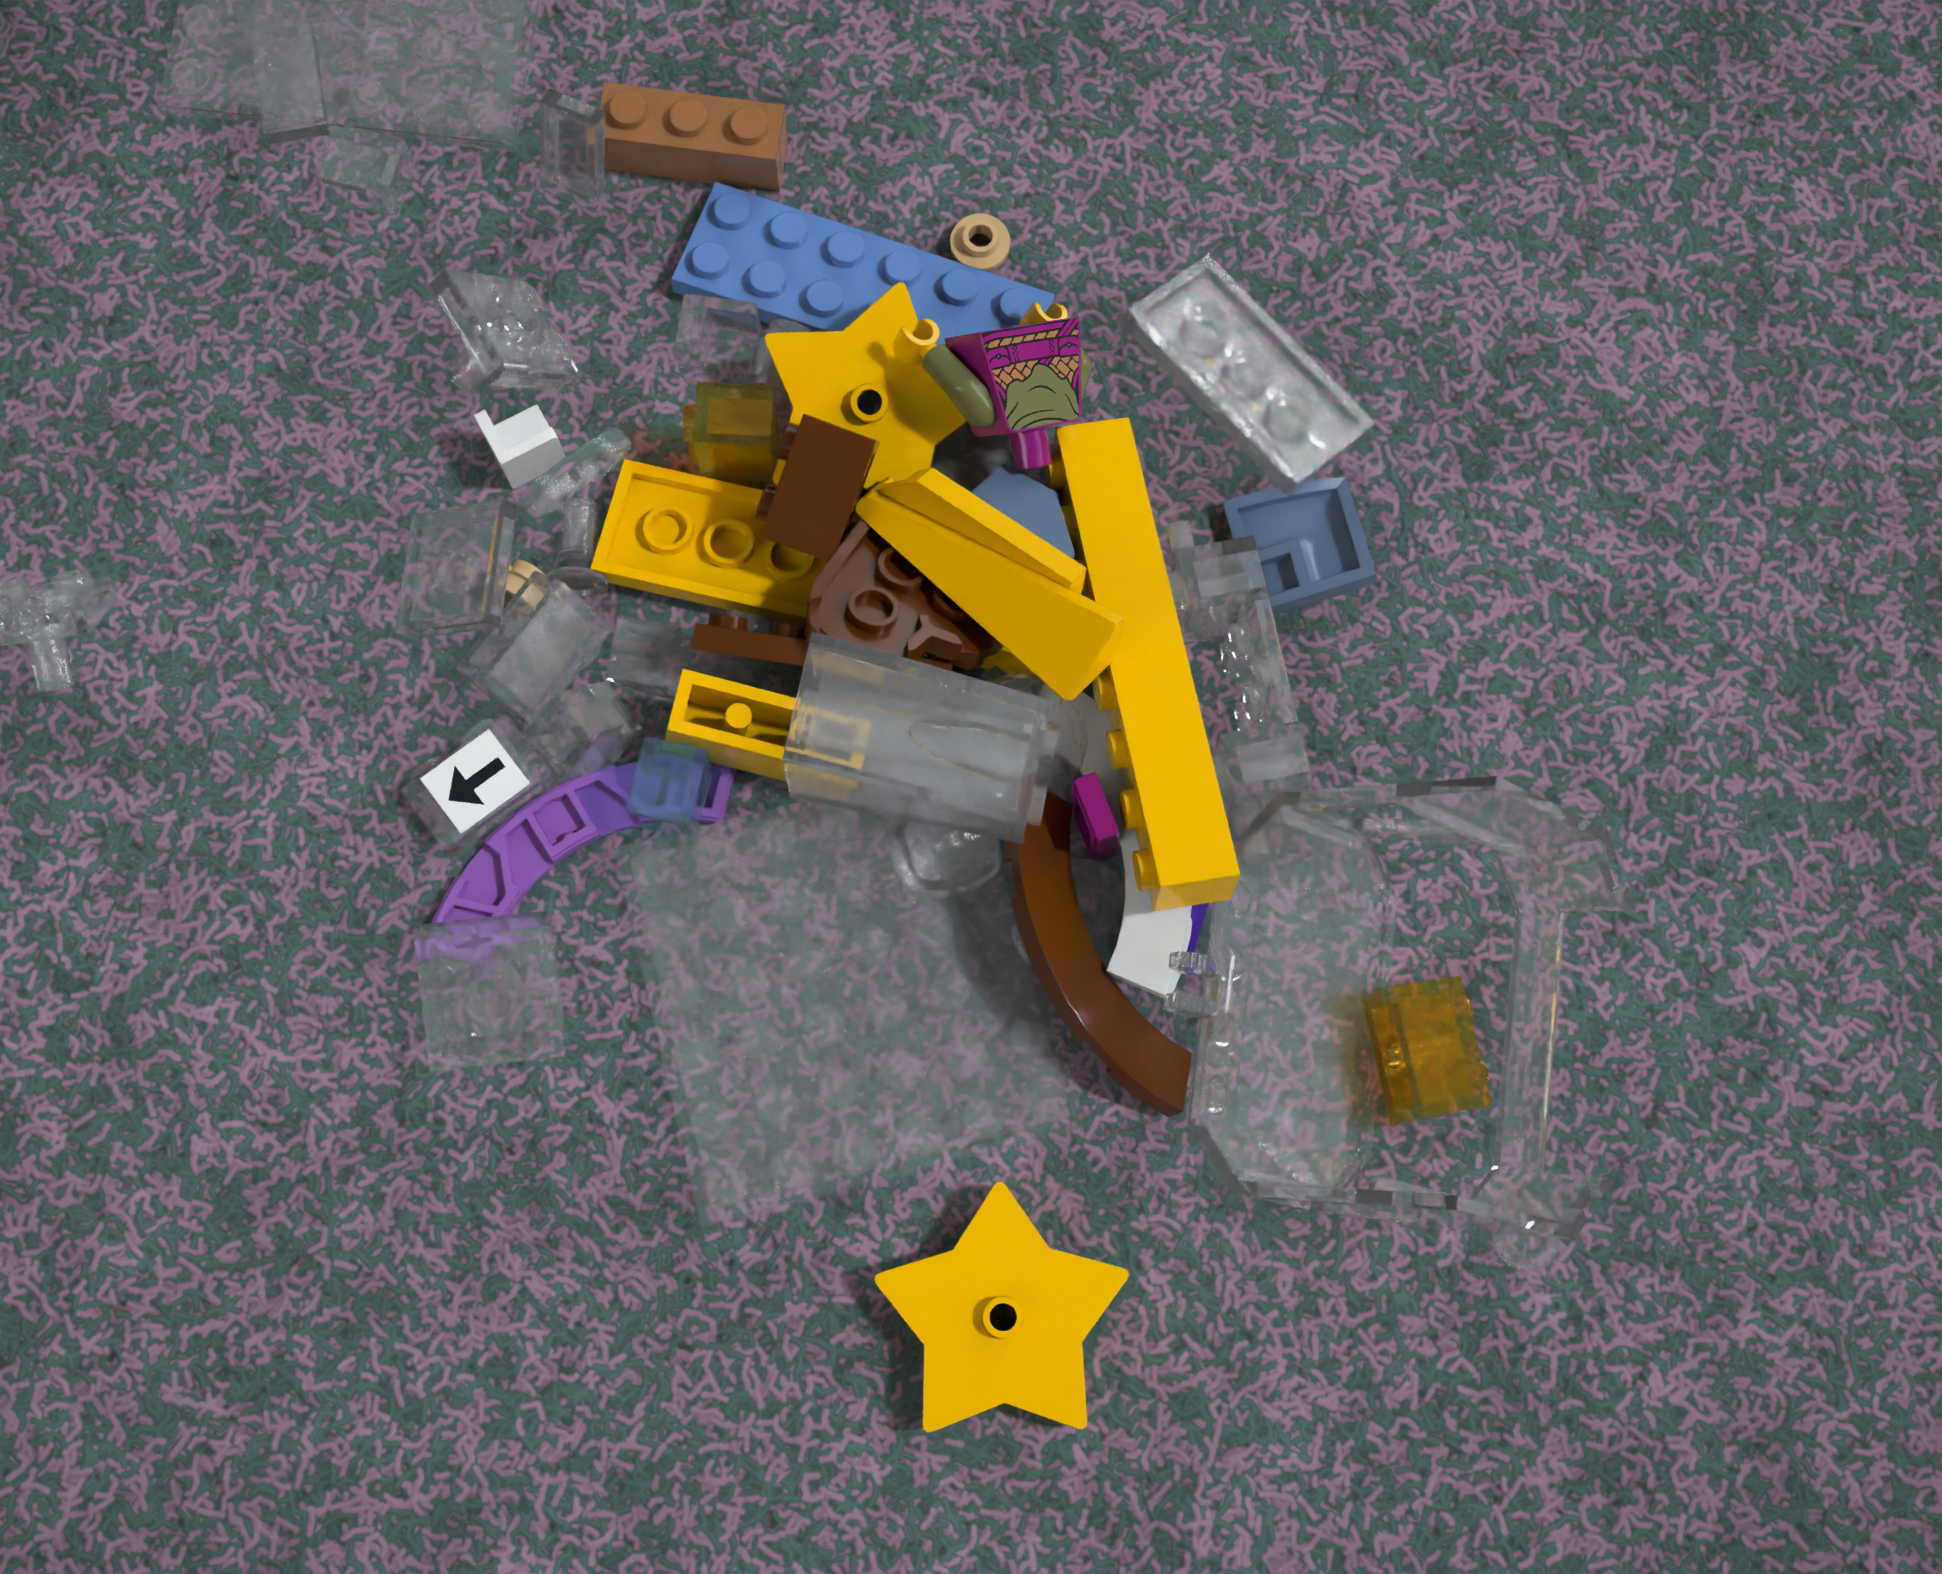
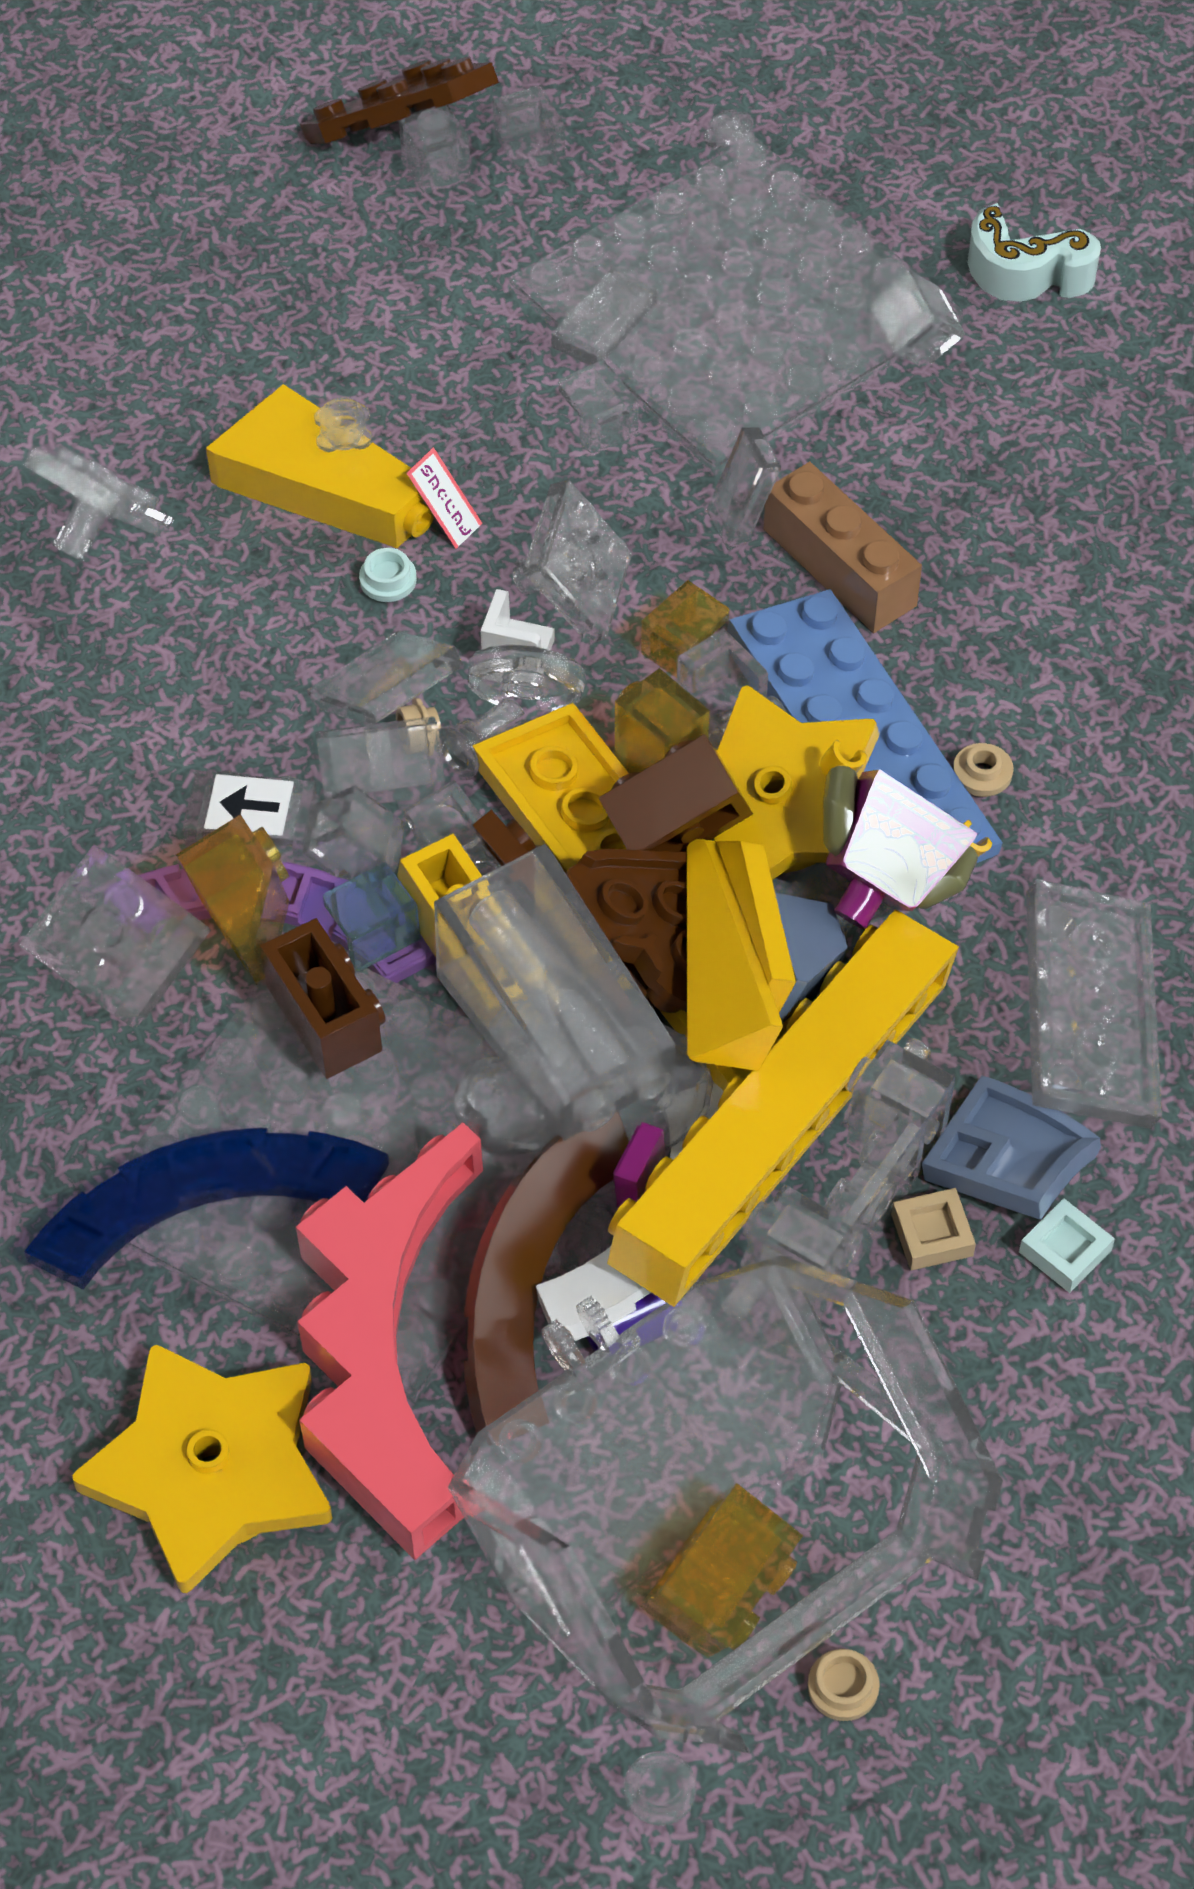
camera: 50 degrees right, 20 degrees down
(180, 359) = (343, 425): none -> clear plate
(196, 423) = (278, 462): none -> yellow slope
(332, 364) = (444, 498): none -> white sticker
(351, 473) = (387, 575): none -> light aqua plate
(562, 867) = (240, 887): none -> clear yellow slope
(644, 317) = (680, 624): none -> clear yellow panel
(718, 893) = (323, 997): none -> reddish brown brick
(758, 1119) = (193, 1175): none -> clear blue tile
(1101, 1190) = (365, 1425): none -> coral arch
(1310, 654) = (933, 1229): none -> tan plate
(1405, 583) = (1066, 1245): none -> light aqua plate
(1575, 1048) = (843, 1684): none -> tan plate

